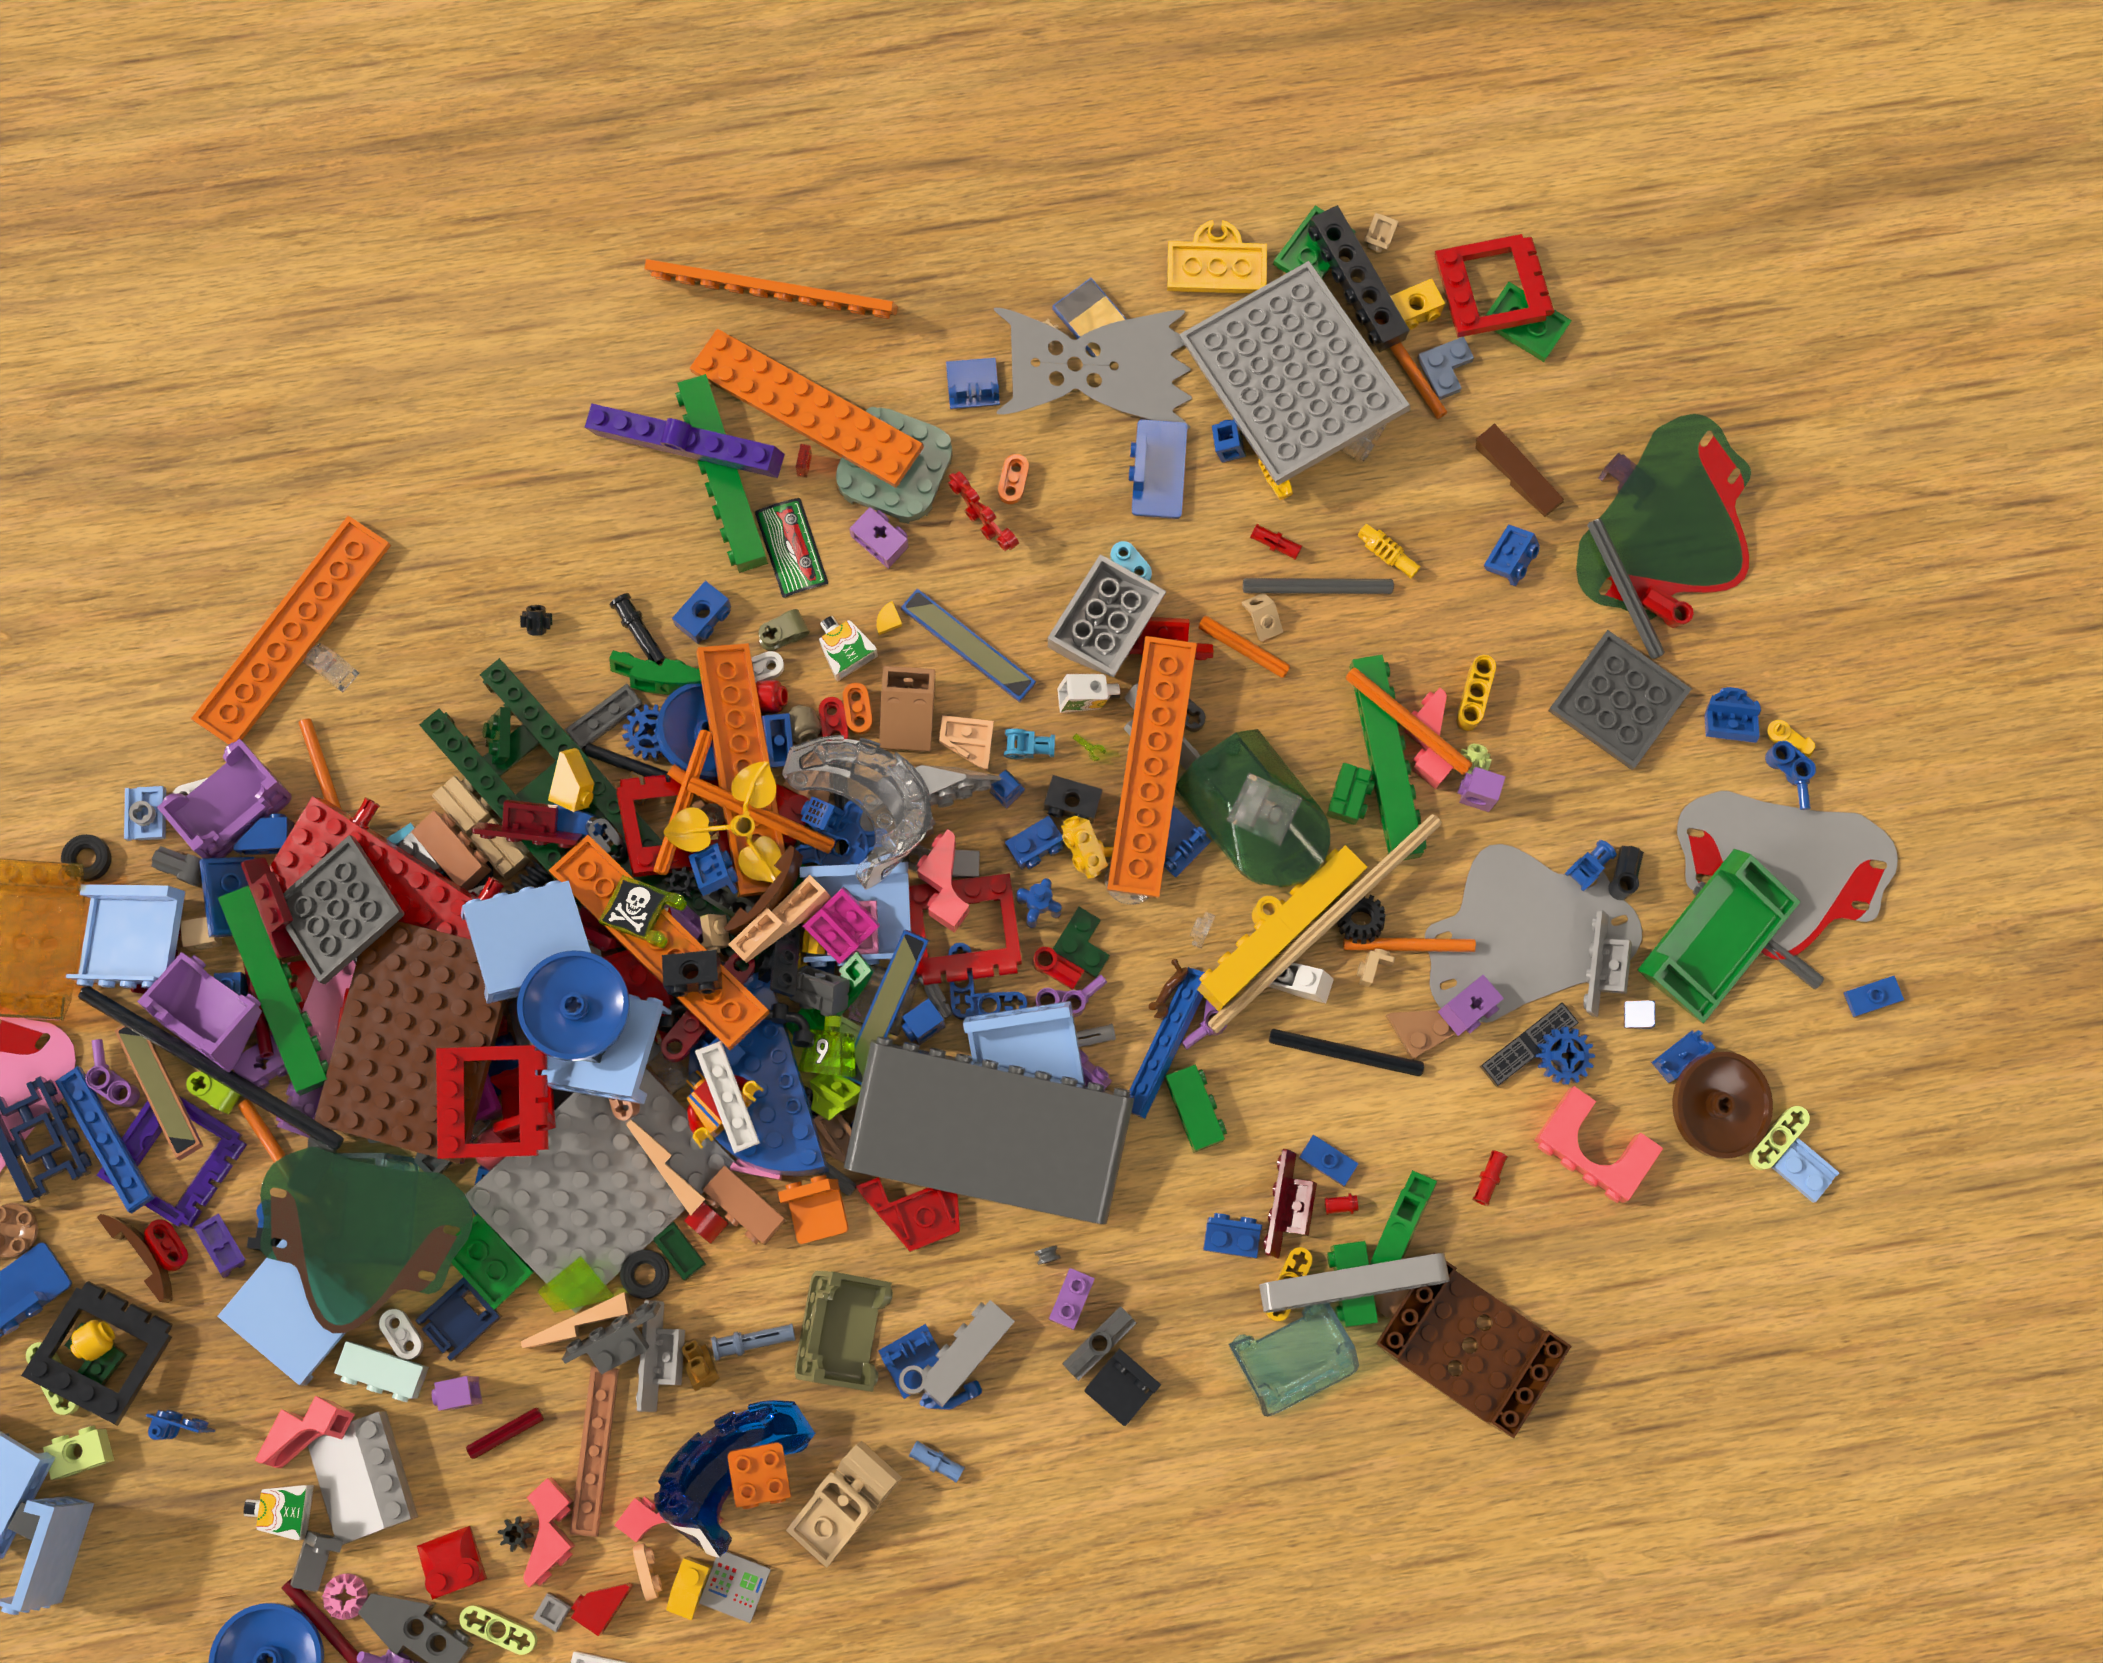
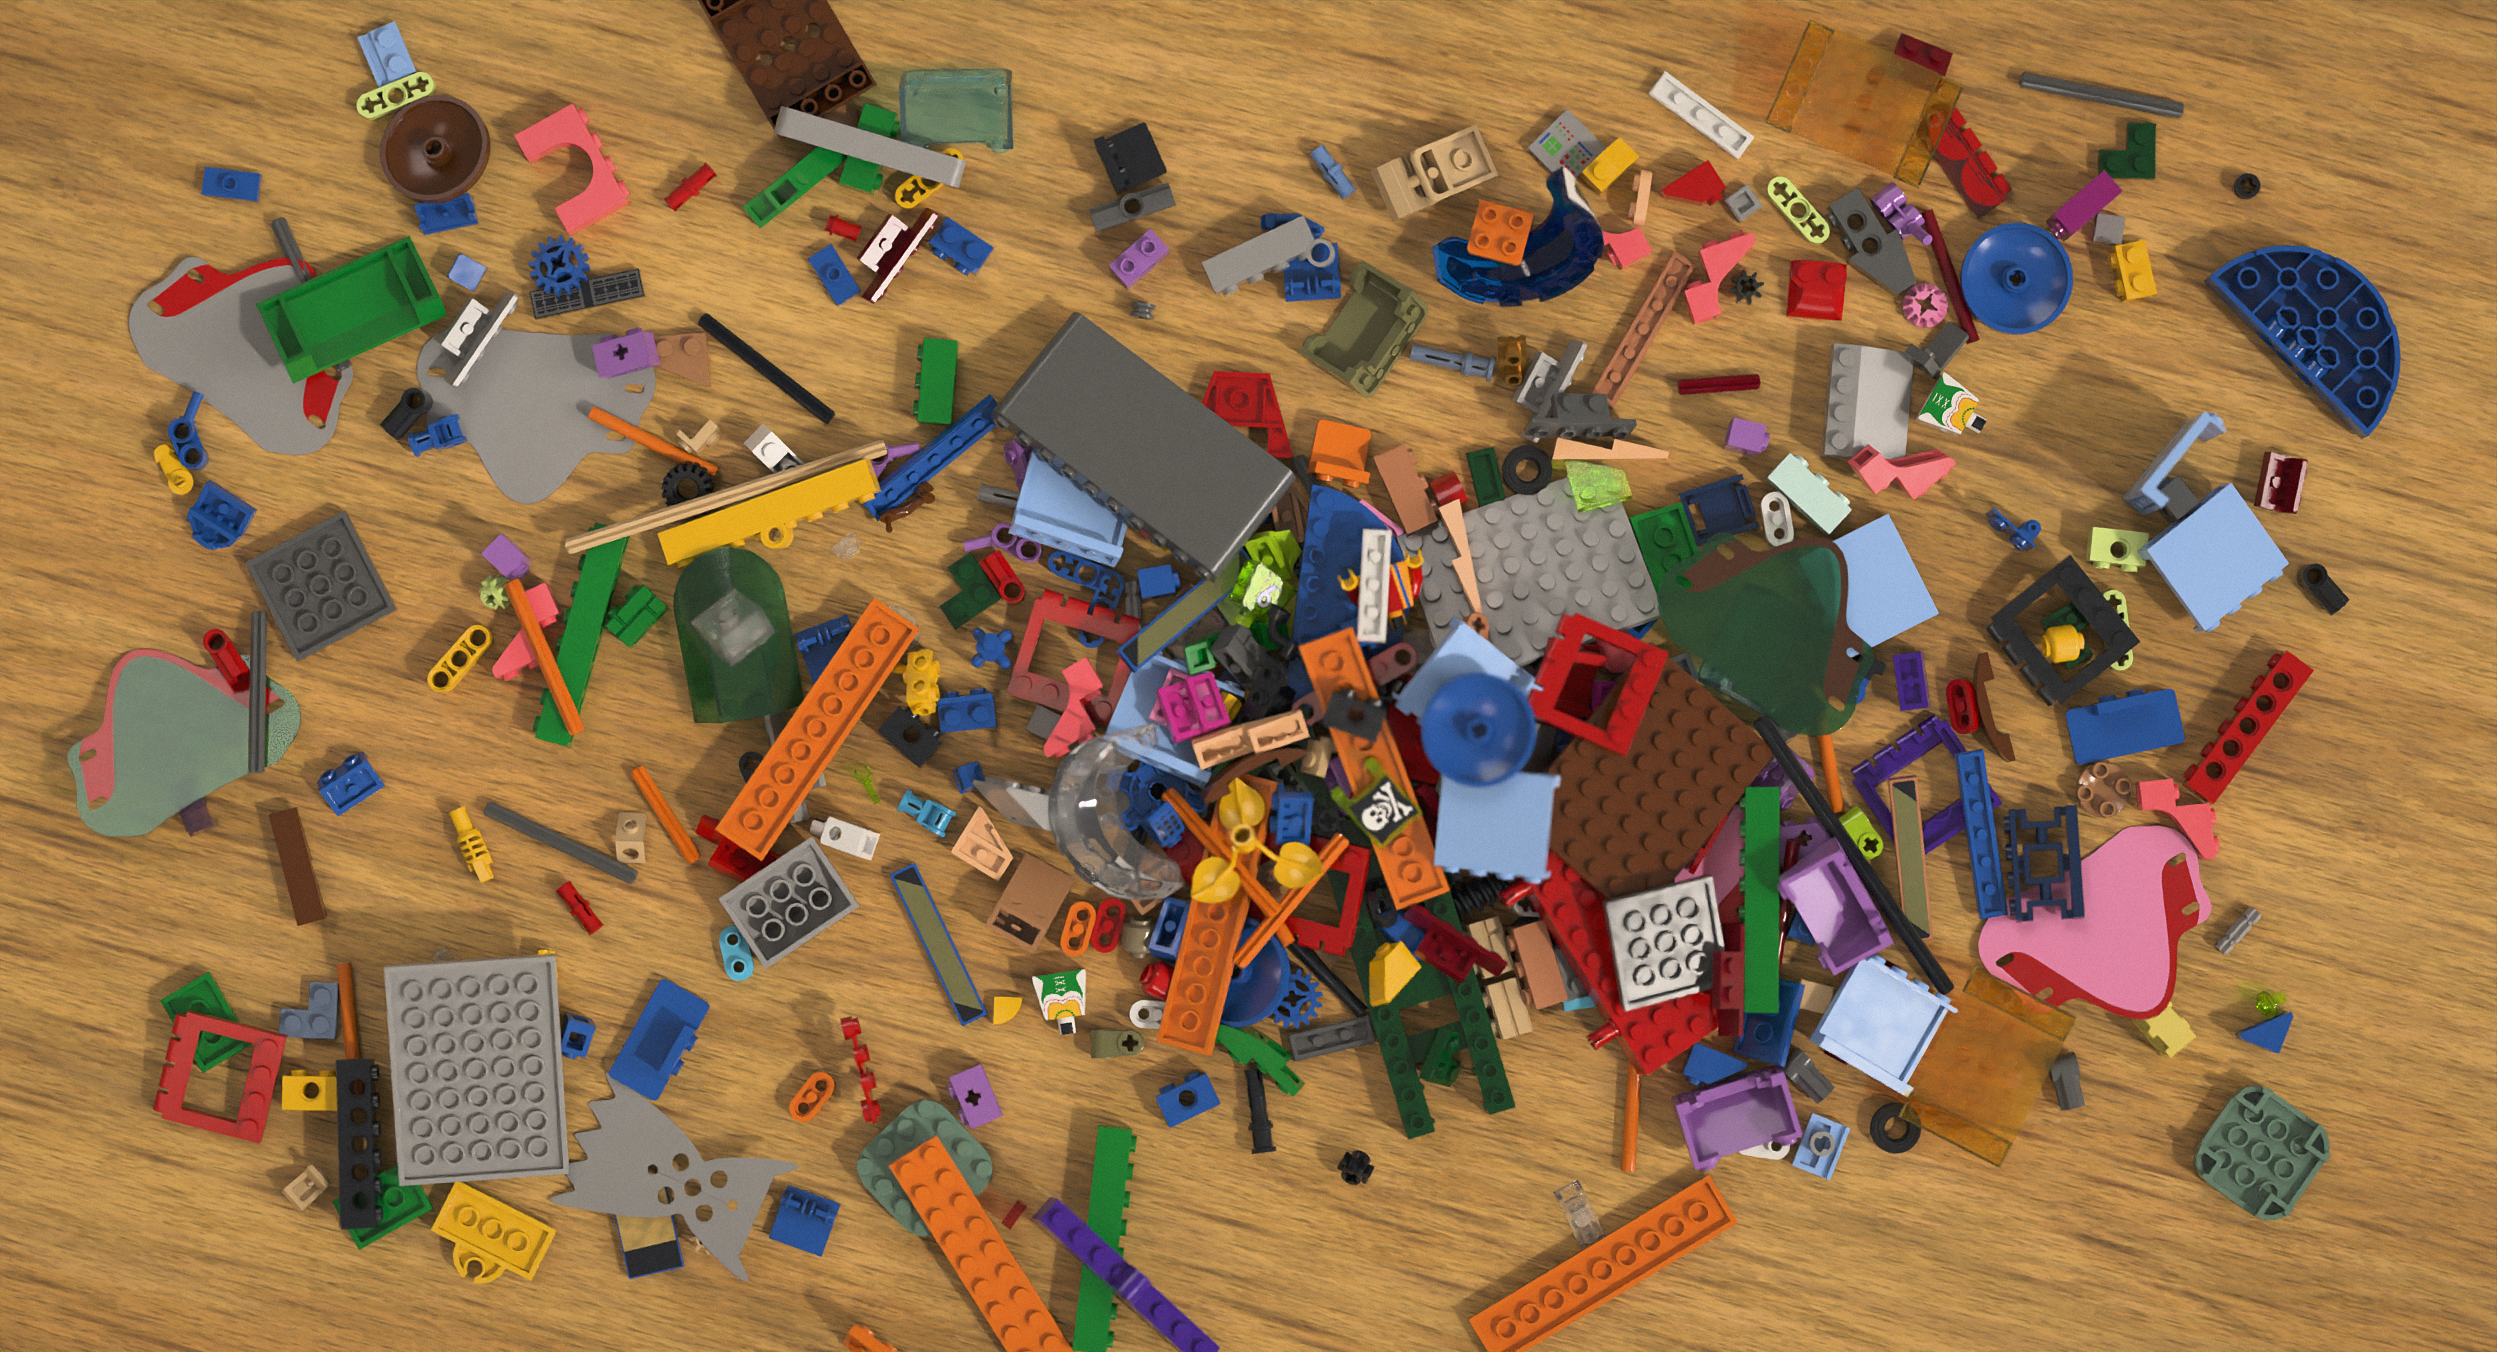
camera: 150 degrees left, 10 degrees up
(113, 1082) = (1950, 887): medium lavender beam -> none
(791, 547) = (1068, 1131): sticker -> none

